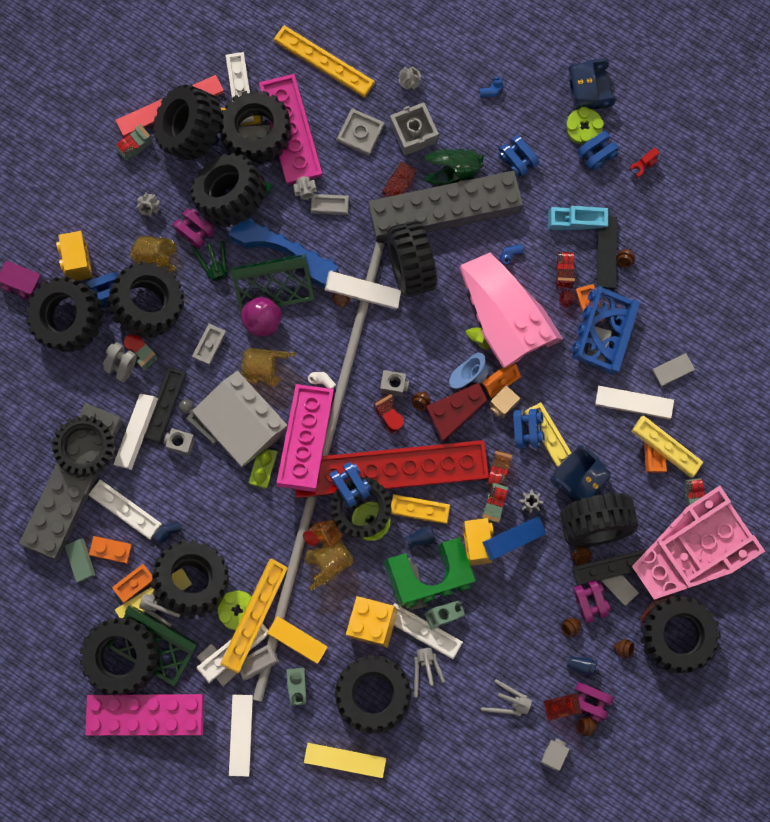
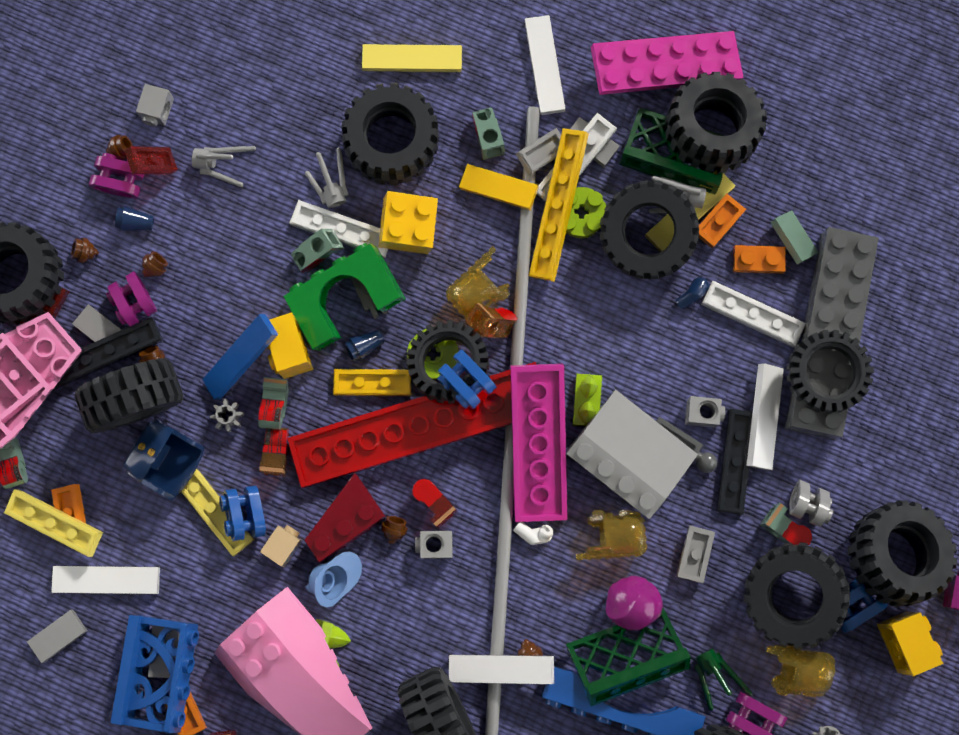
camera: 170 degrees right, 5 degrees up
(500, 379) = (291, 575): orange plate -> none
(566, 298) = (217, 713): clear red plate -> none

